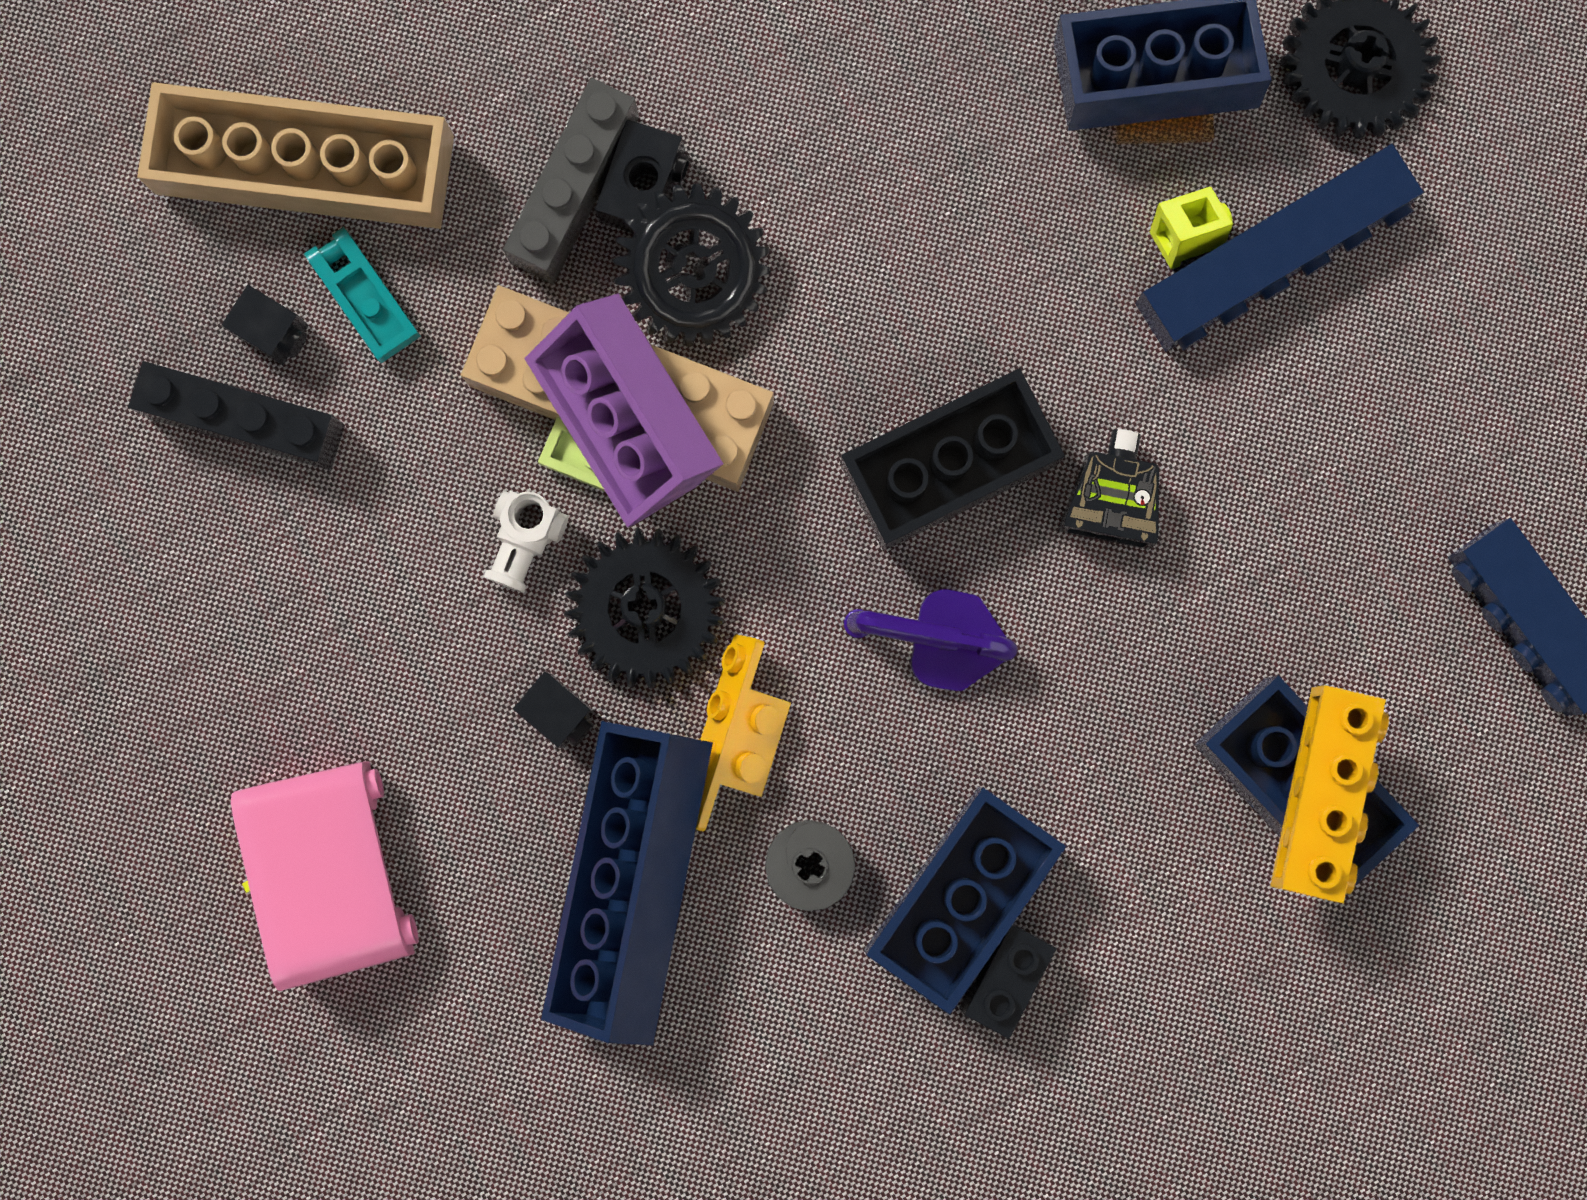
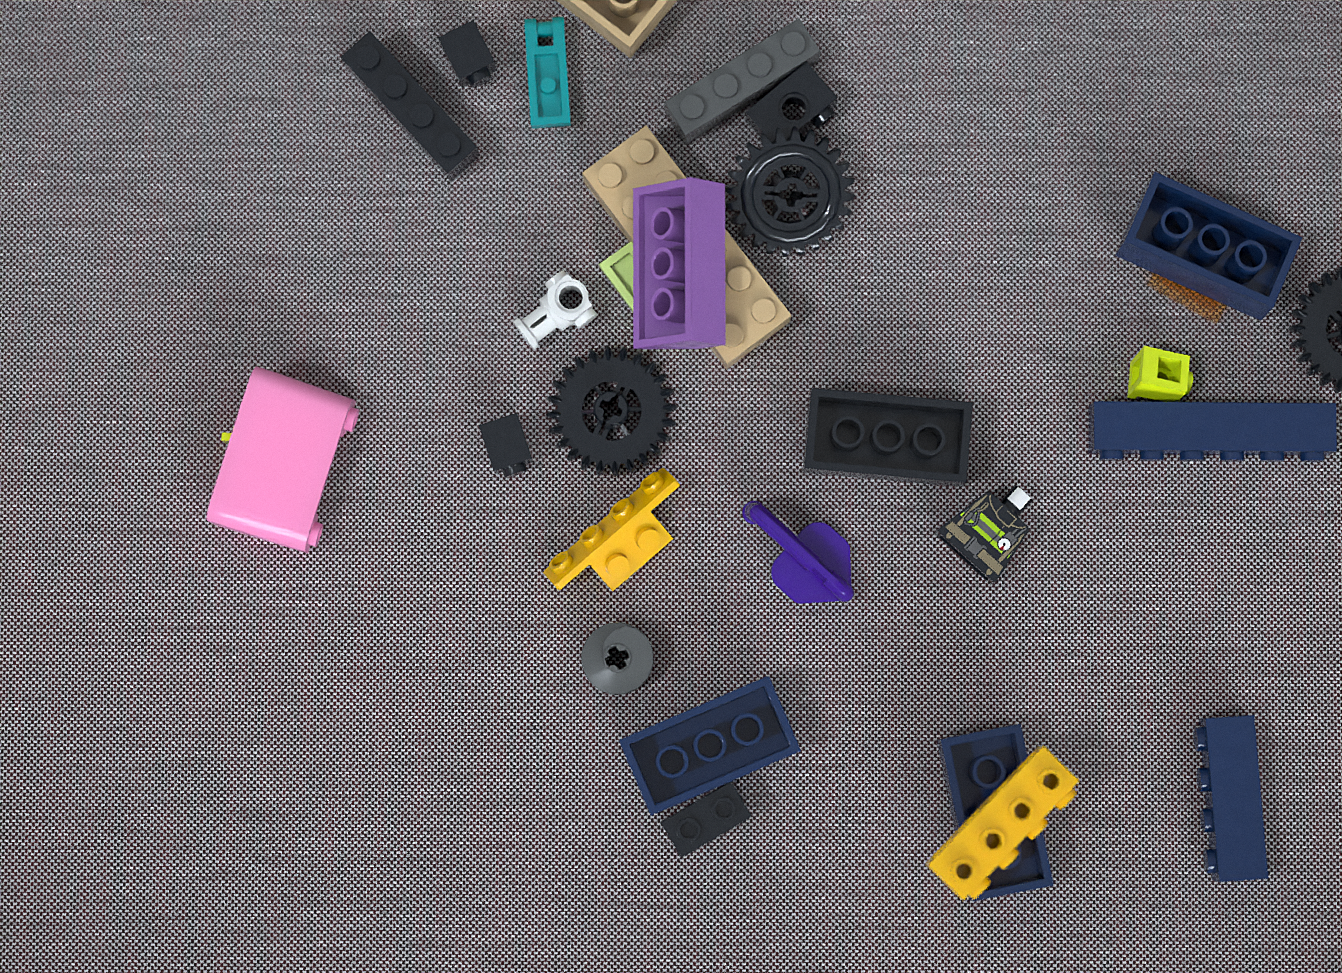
camera: 30 degrees right, 0 degrees up
(626, 884) = (485, 591): dark blue brick -> none

